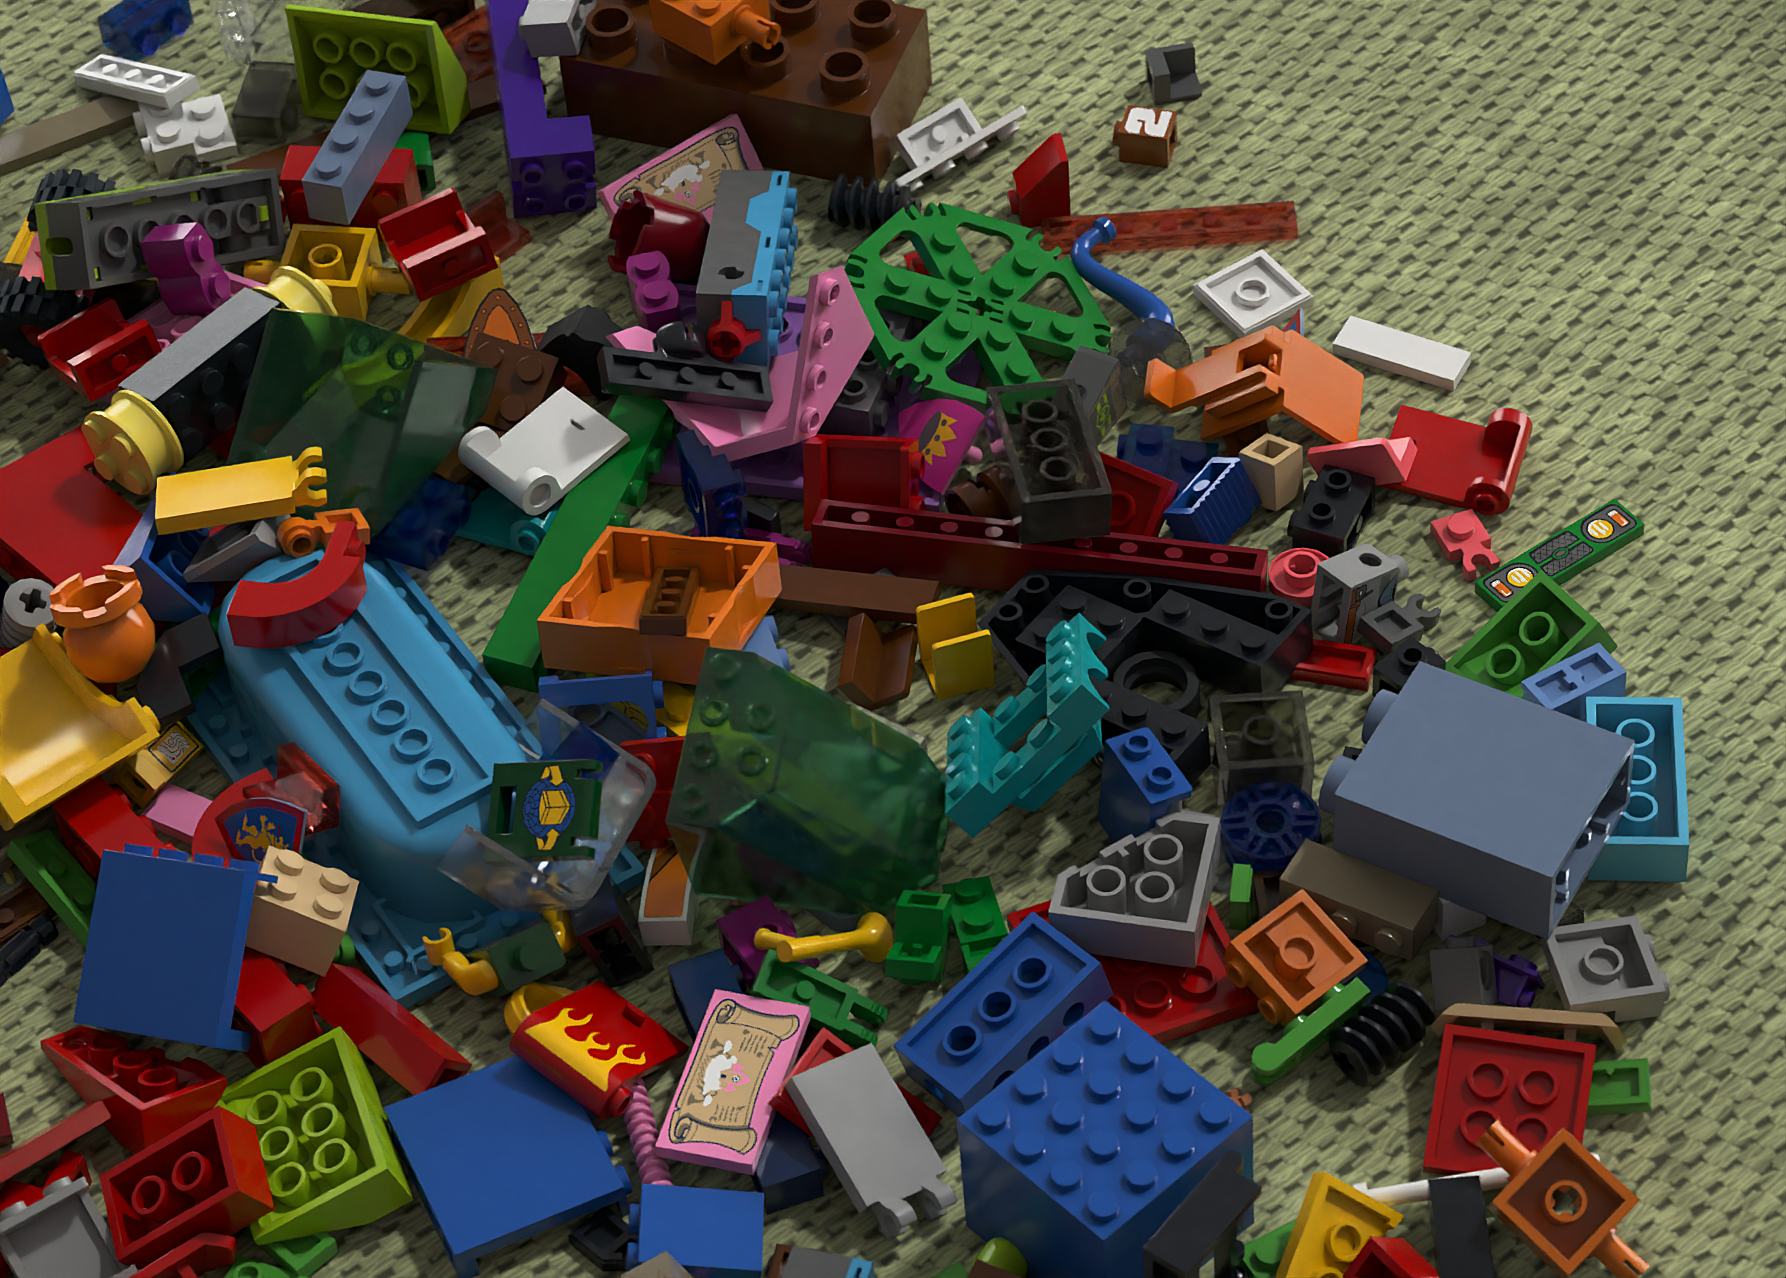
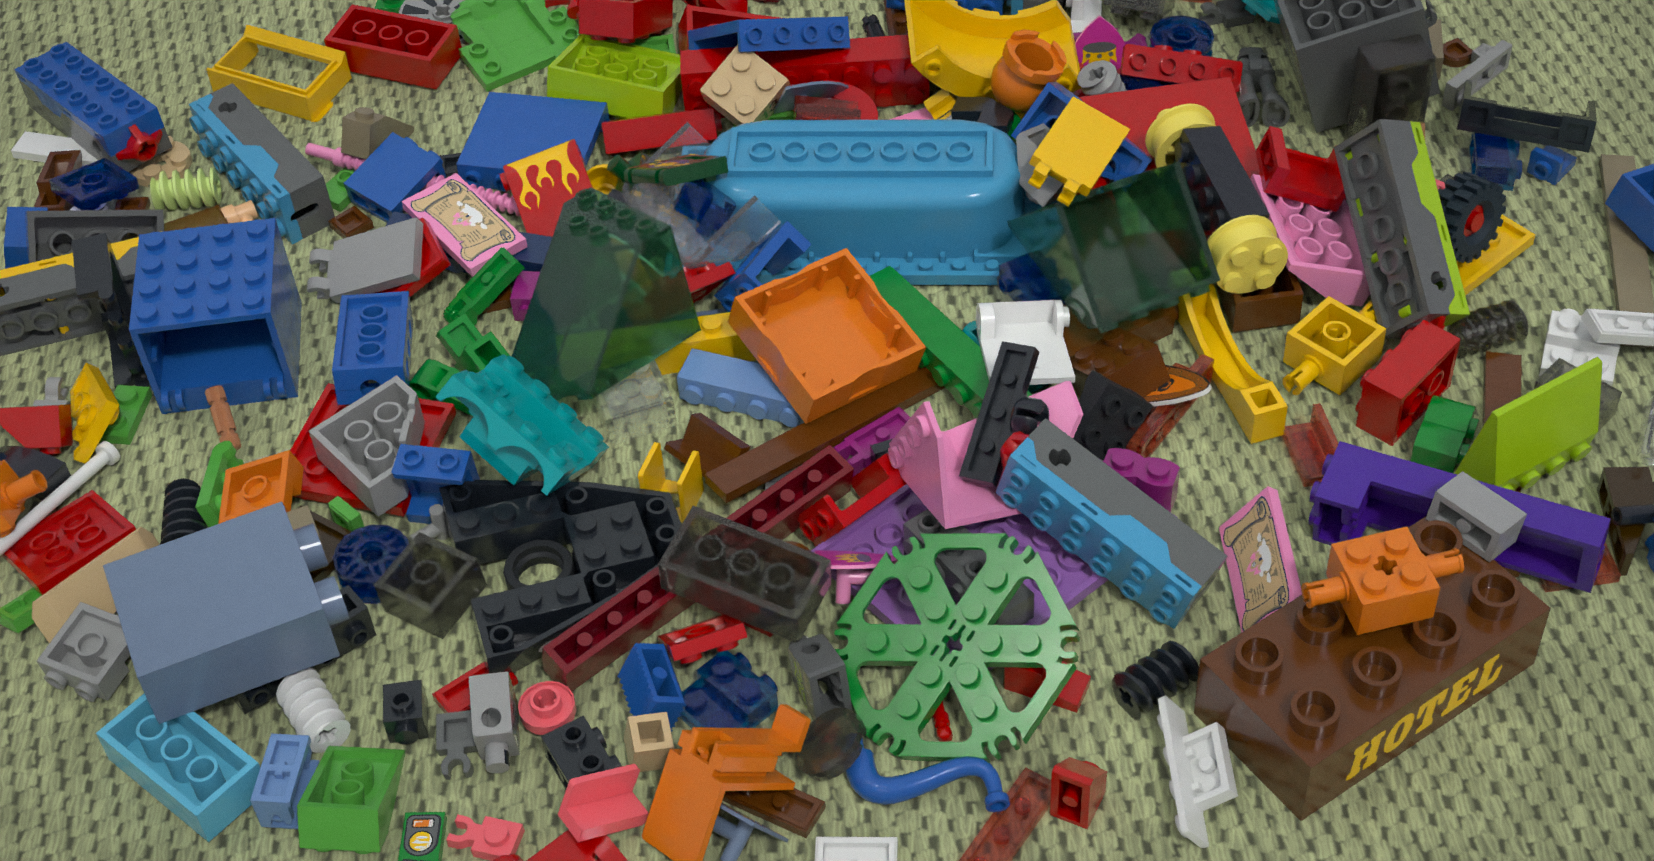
camera: 125 degrees right, 0 degrees up
(186, 268) = (1336, 215): magenta brick -> none
(300, 536) = (1012, 185): orange plate -> none
(305, 607) = (938, 120): red arch -> none
(357, 147) = (1407, 351): sand blue brick -> none
(436, 245) = (1282, 379): red panel -> none
(659, 225) = (1209, 508): dark red cylinder -> none
(670, 601) = (809, 322): reddish brown tile -> none
(711, 489) = (896, 397): clear blue plate -> none
(872, 938) = (503, 277): yellow piece -> none

